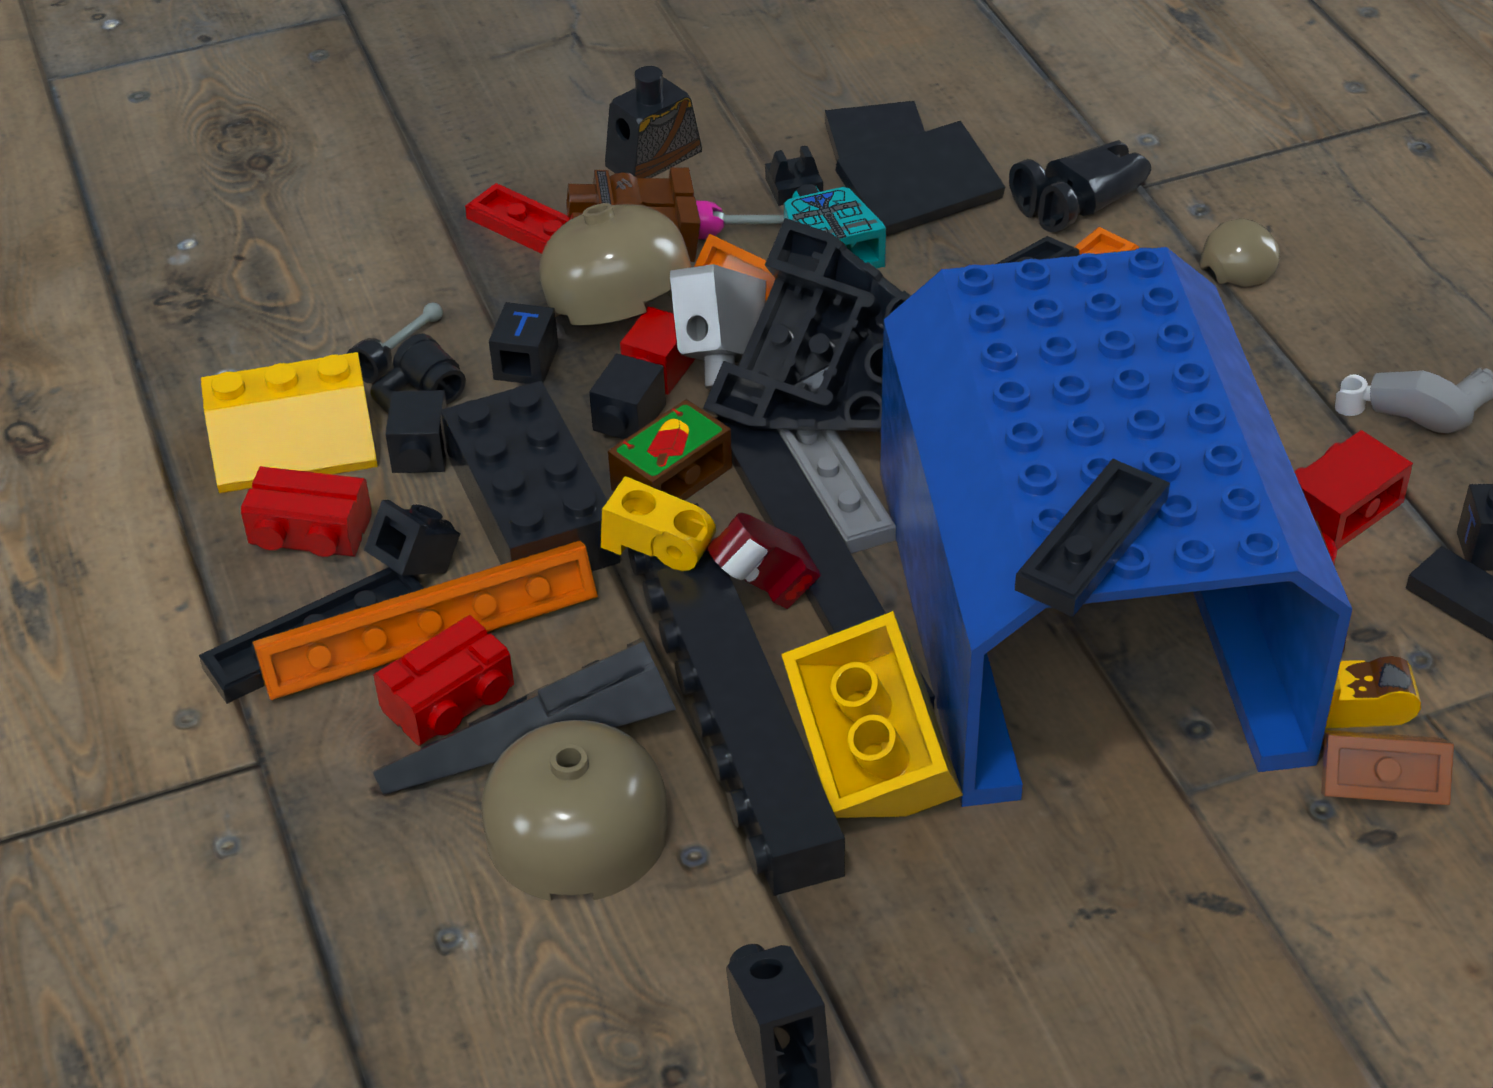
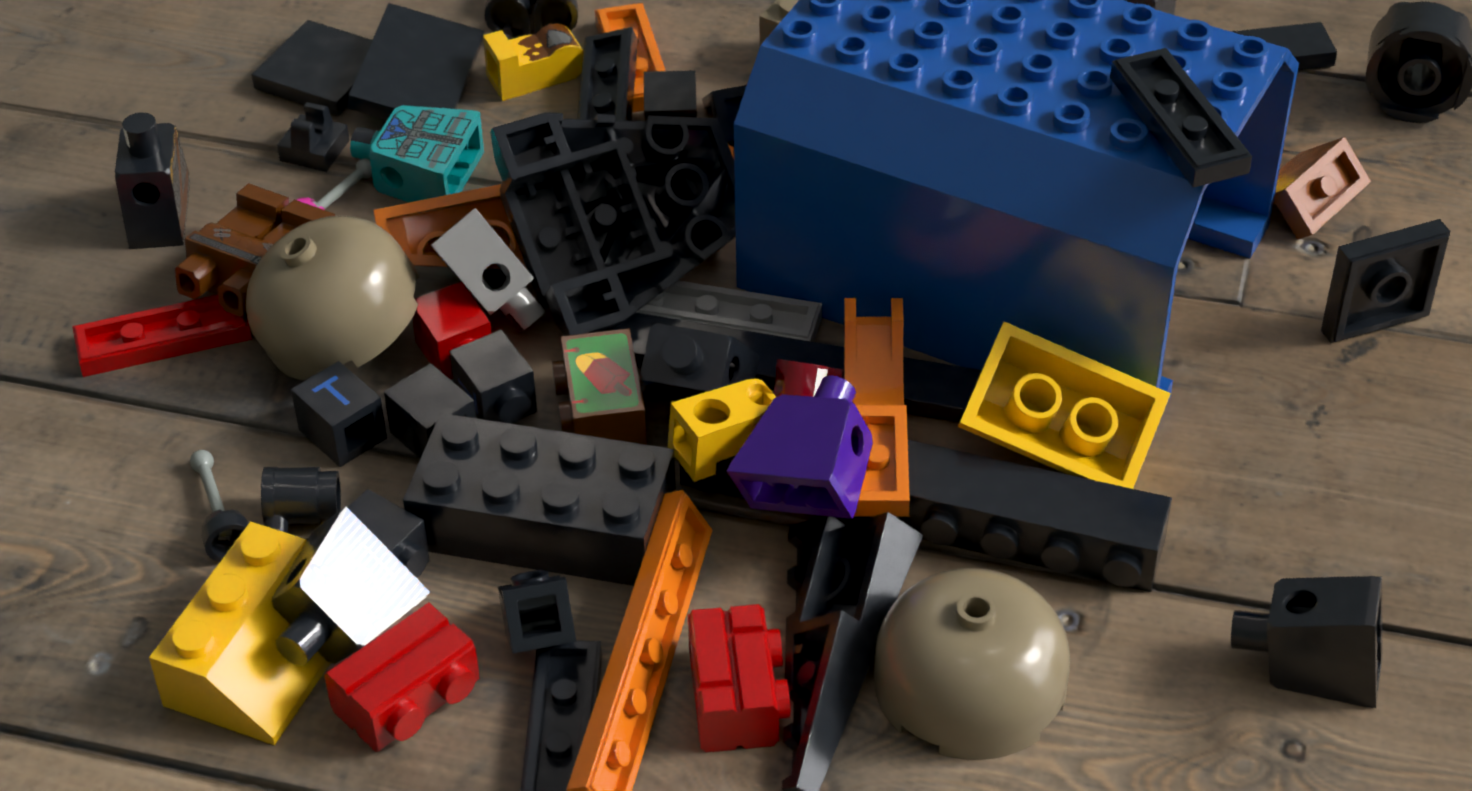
camera: 55 degrees left, 0 degrees up
(334, 431) = (342, 592): none -> torso
(568, 379) = (417, 403): none -> black brick
(657, 580) = (806, 454): none -> dark purple torso
(713, 466) = (692, 362): none -> black torso
(740, 615) = (876, 371): none -> orange piece
(995, 226) = (531, 60): none -> yellow leg
(1275, 861) = (1384, 280): none -> black tile

